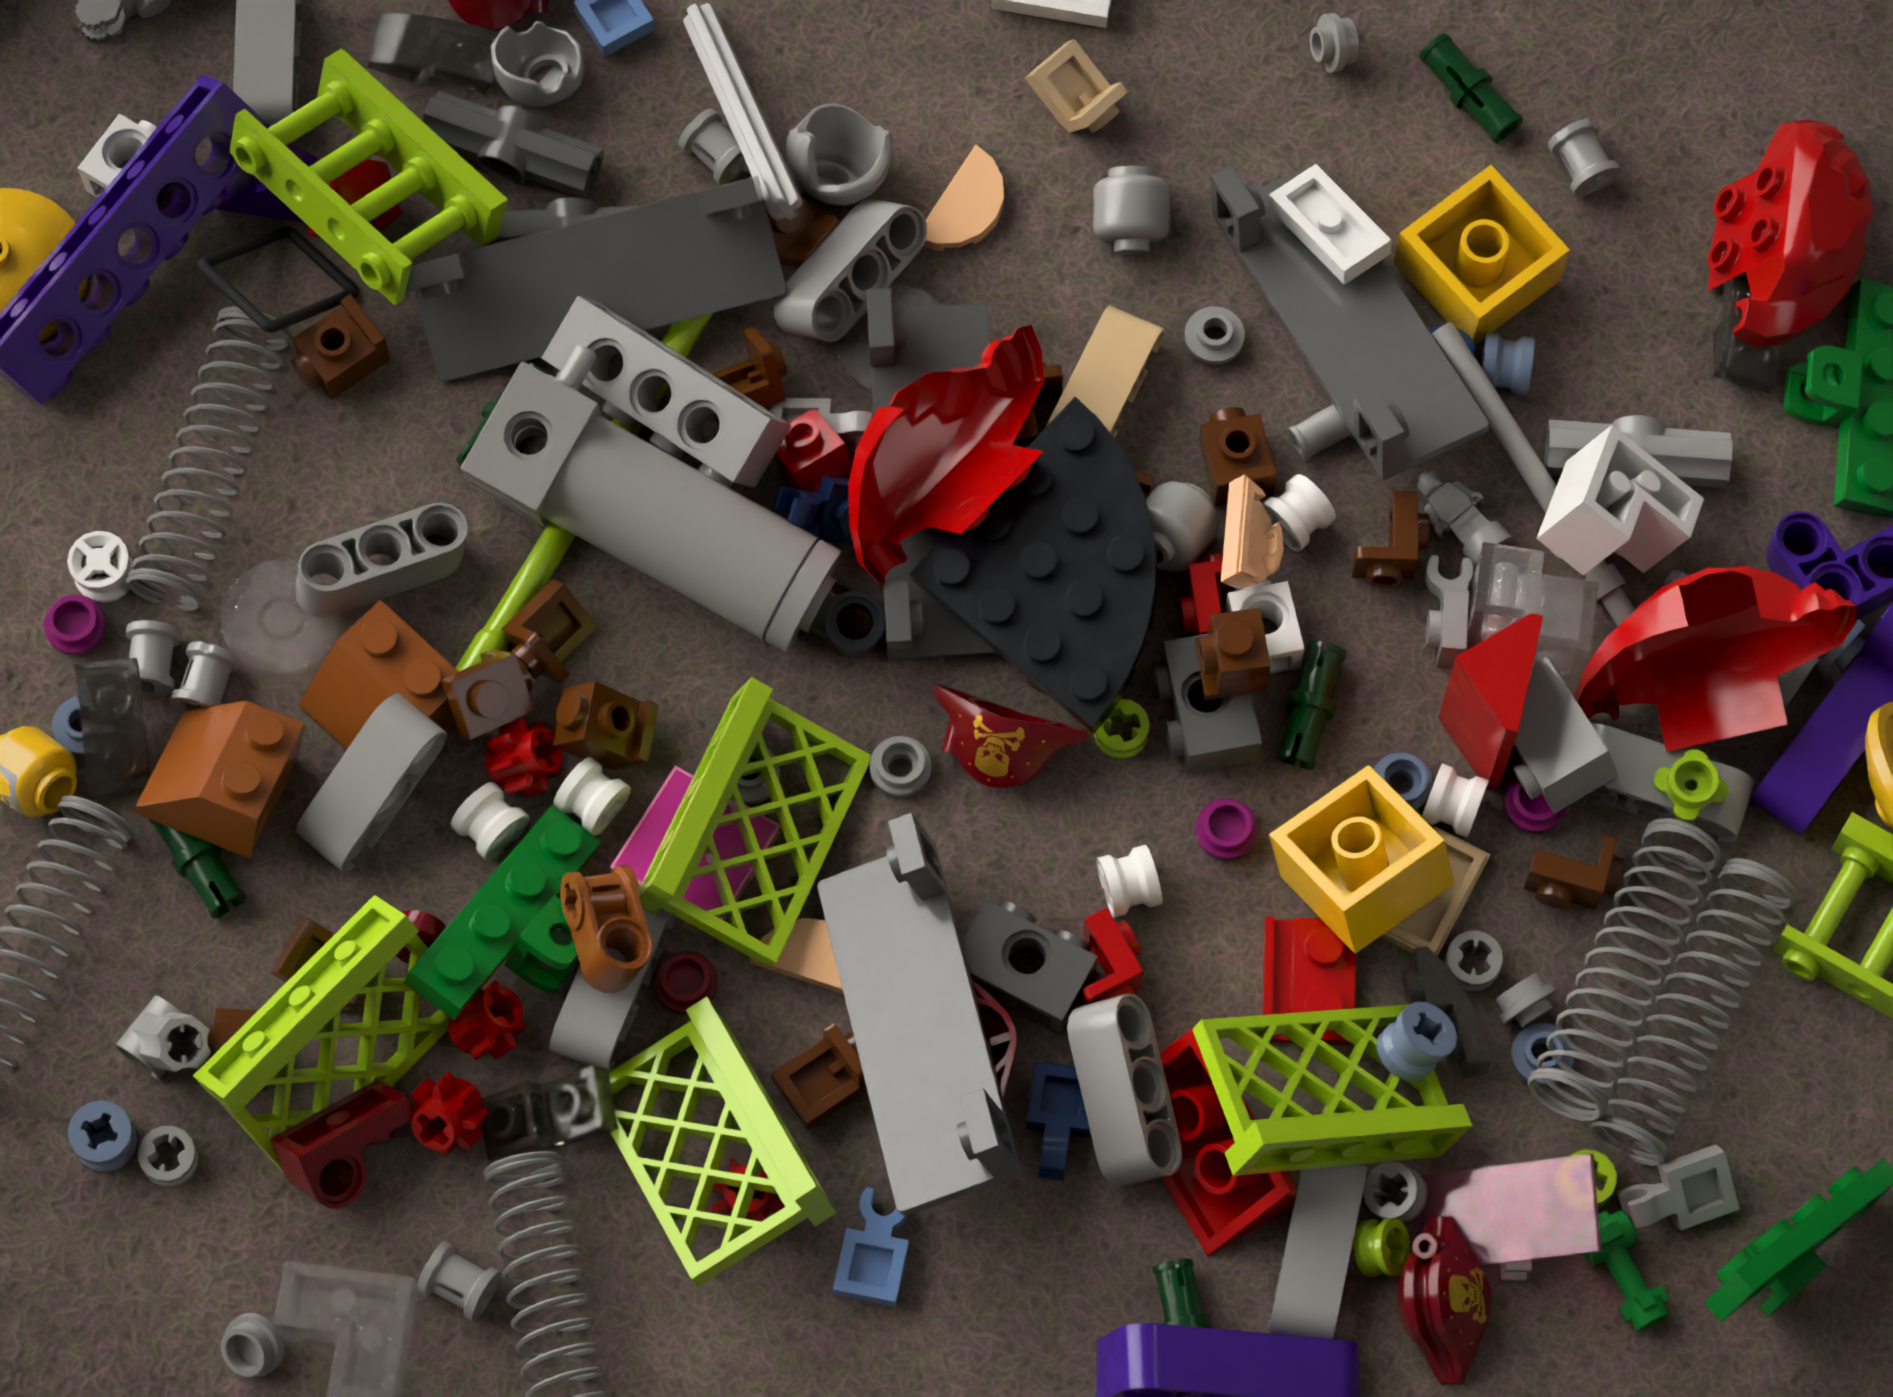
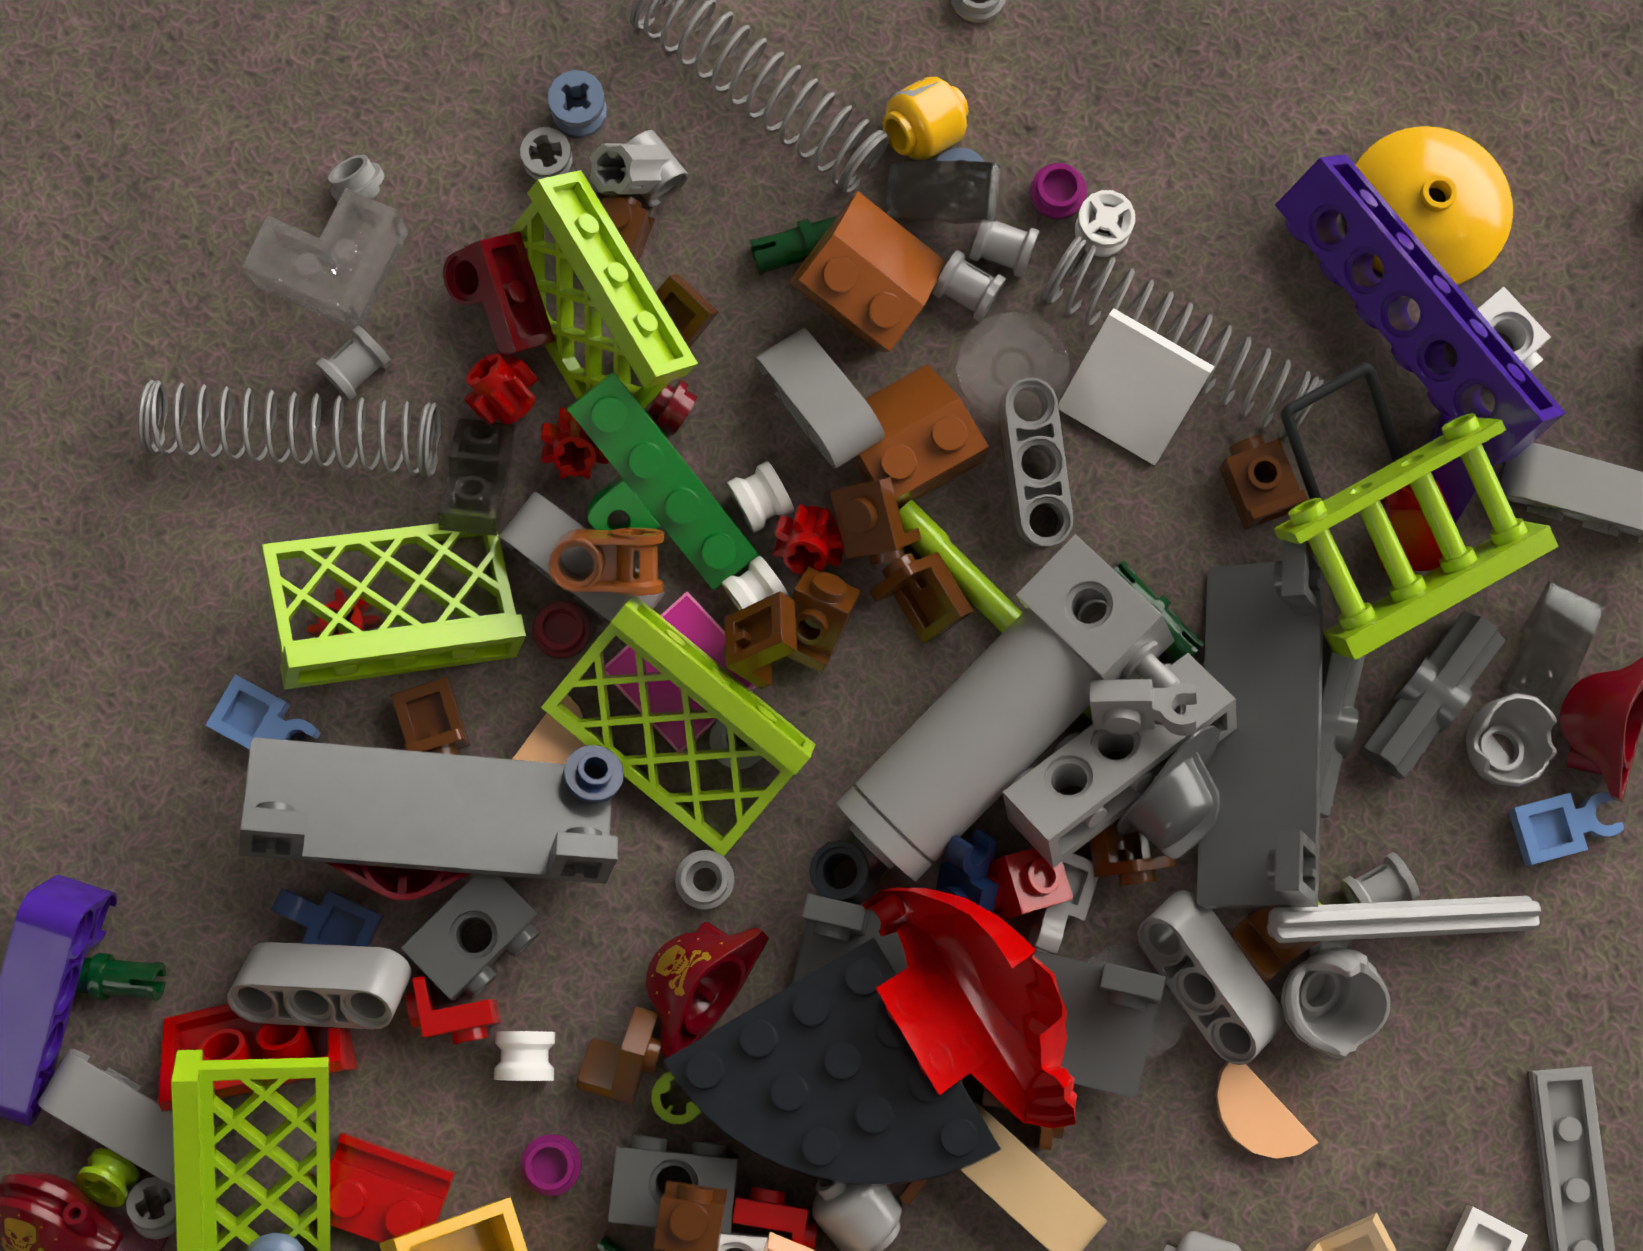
camera: 105 degrees right, 10 degrees up
(274, 485) = (1134, 386): none -> white tile
(614, 379) = (1135, 705): none -> light grey plate
(642, 761) = (759, 637): none -> reddish brown bracket
(700, 322) = (1180, 801): none -> dark grey piece
(840, 897) = (589, 789): none -> plate
(1107, 777) = (618, 1069): none -> reddish brown bracket

